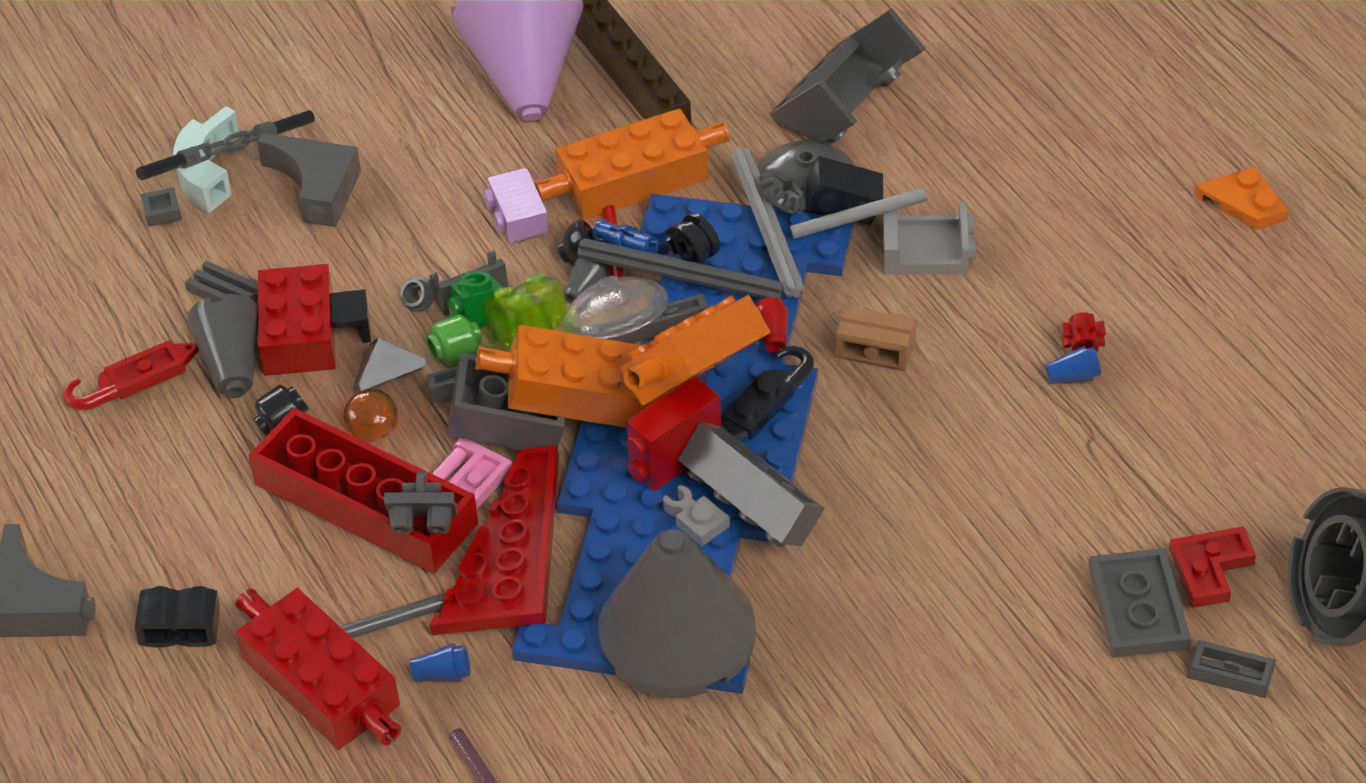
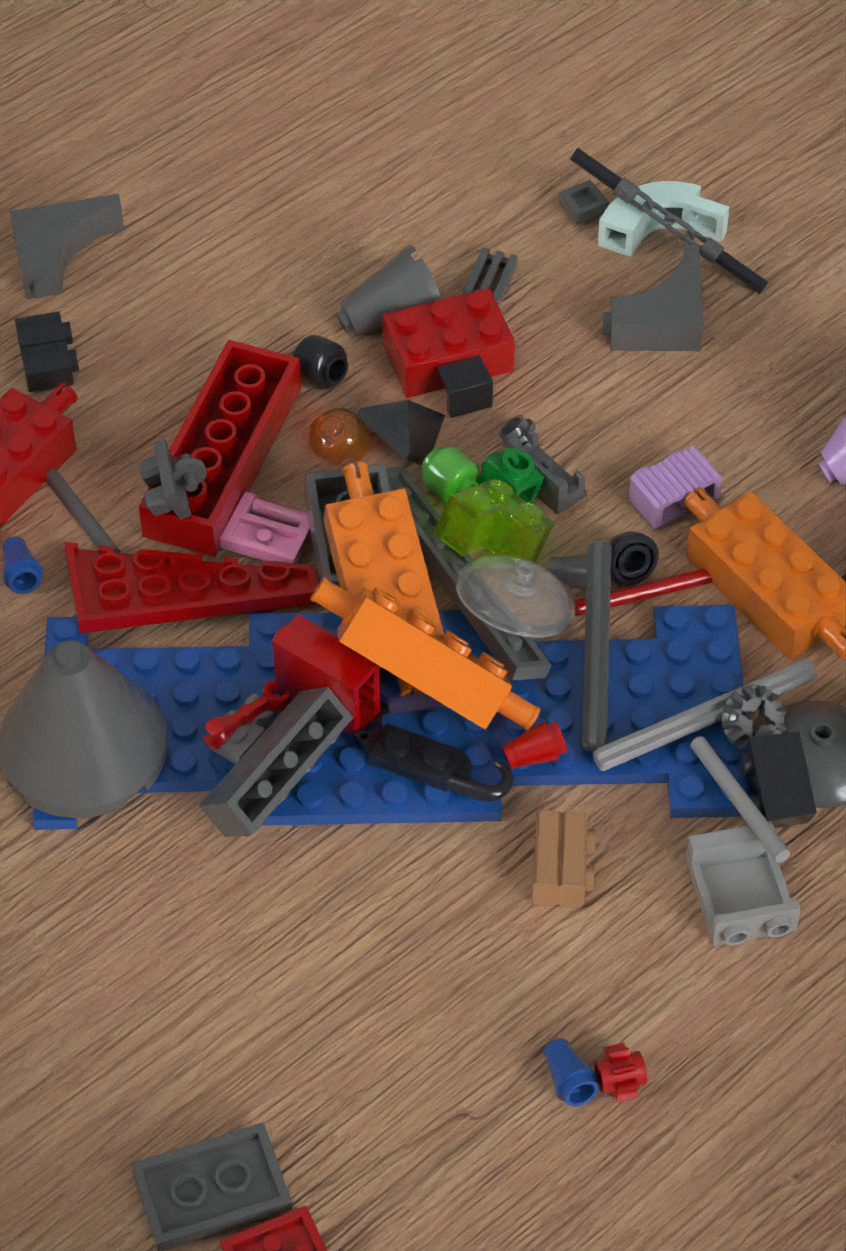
camera: 75 degrees right, 5 degrees up
(134, 374) = (343, 238): red plate -> none
(624, 236) = (637, 588): blue pin -> none
(693, 239) = (637, 643): black wheel -> none
(708, 508) = (223, 727): none -> red piece

